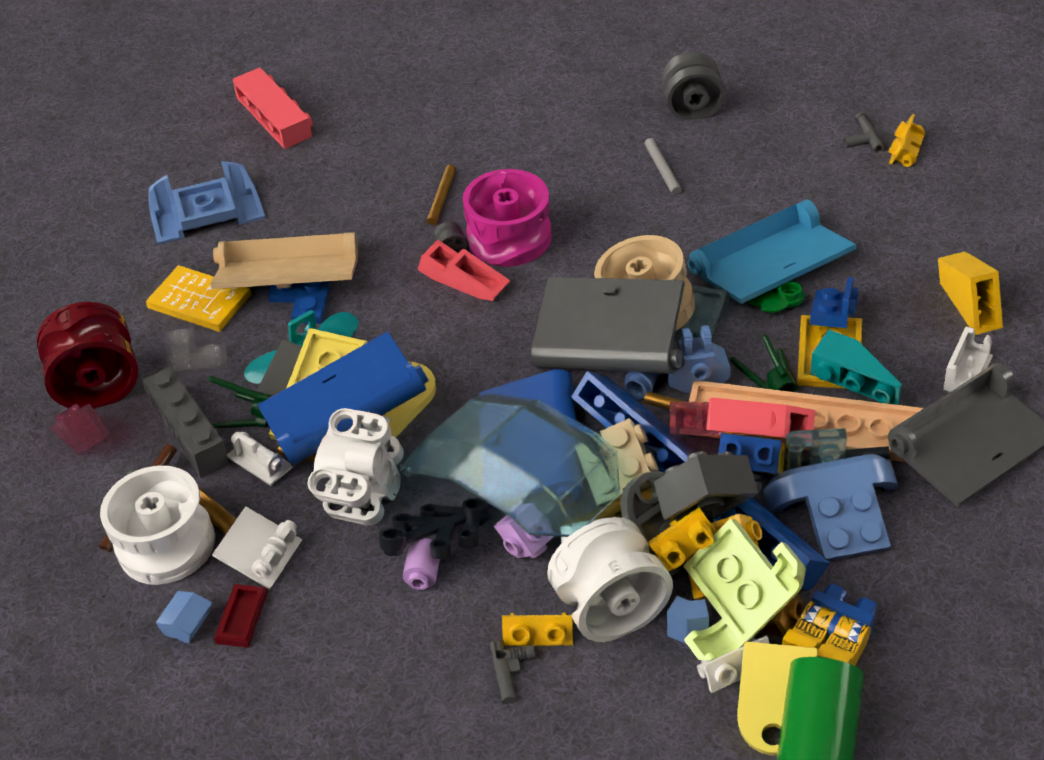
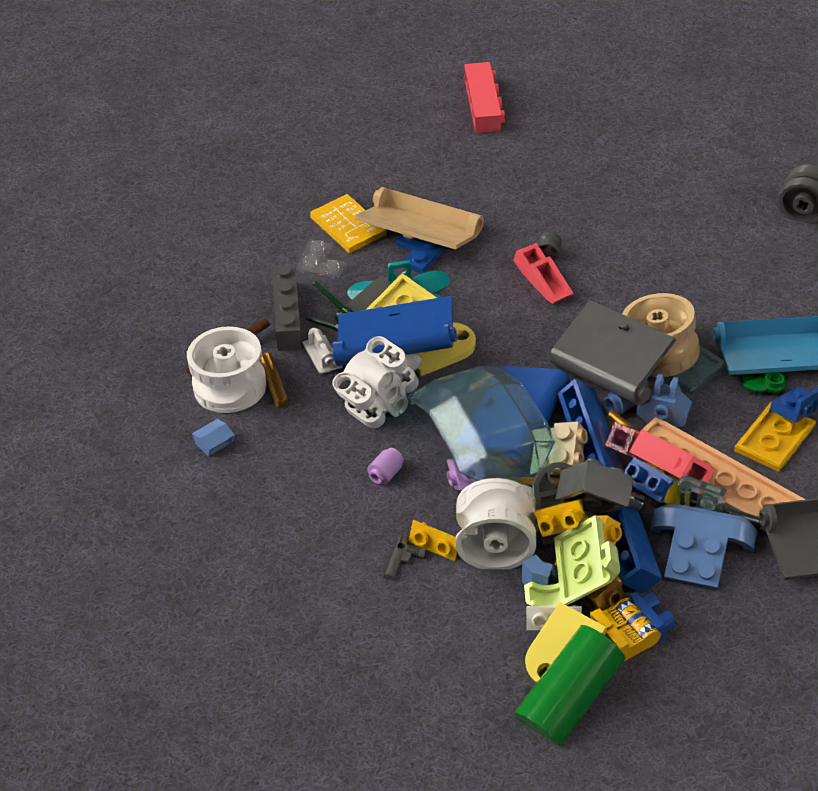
camera: 25 degrees right, 0 degrees up
(79, 428) = (215, 284): clear pink slope -> none
(86, 355) = (243, 235): dark red piece -> none
(203, 203) = (392, 154): medium blue piece -> none
(241, 615) = (250, 452): dark red tile -> none
(258, 546) = (285, 411): white hinge -> none
(441, 195) = (564, 212): pearl gold bar -> none
(472, 513) = (410, 443): black plant -> none
(507, 217) = (597, 245): dark pink piece -> none
(663, 166) = (748, 249): light grey bar -> none
(778, 377) = (720, 439): dark green plant -> none
(852, 366) = (773, 447): teal slope -> none

